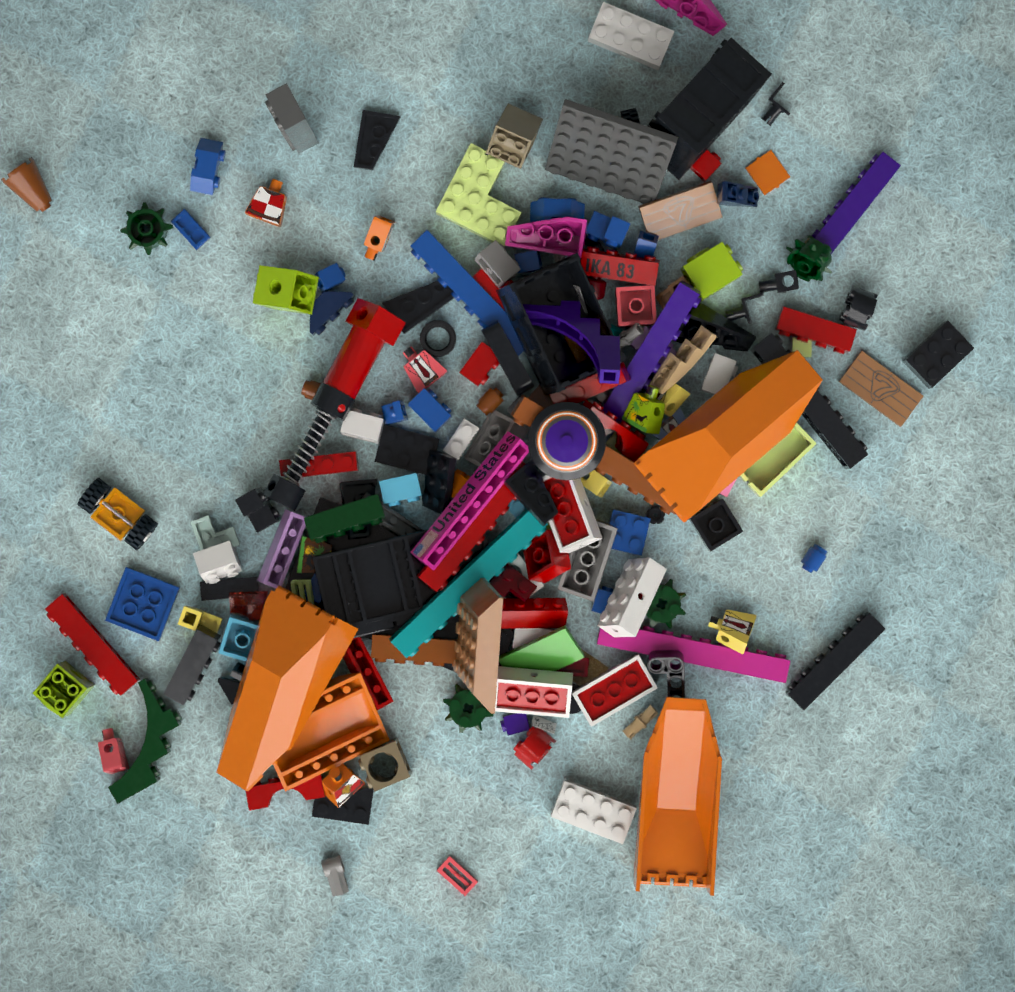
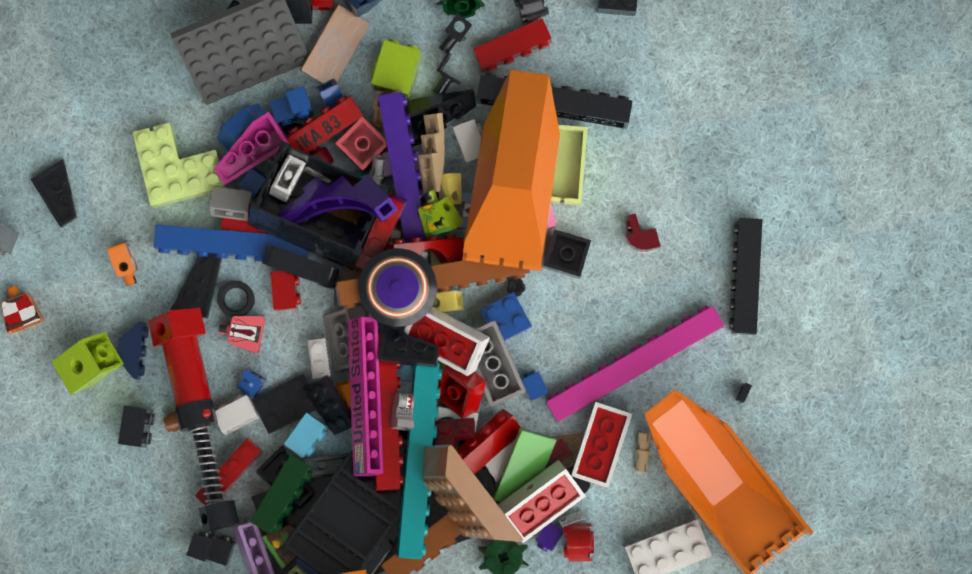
camera: 40 degrees left, 5 degrees down
(280, 369) = (136, 426): none -> black brick
(330, 277) = (114, 324): blue brick -> none
(430, 410) = (276, 357): blue brick -> none
(488, 536) = (402, 412): none -> light grey leg
(490, 401) = (316, 311): dark orange brick -> none
(514, 136) = (160, 98): dark tan brick -> none
(556, 283) = (287, 178): none -> white brick
(631, 597) = (551, 363): white brick -> none
(670, 669) = (631, 391): black beam -> none
(671, 608) = (589, 345): dark green brick -> none
(733, 629) = (649, 319): light yellow torso -> none
(755, 744) = (743, 393): none -> black tile
(779, 563) = (638, 240): none -> dark red brick
(804, 348) = (516, 65): yellowish green tile -> none
(814, 558) = (662, 214): blue brick -> none
(881, 388) = (599, 46): medium nougat tile -> none

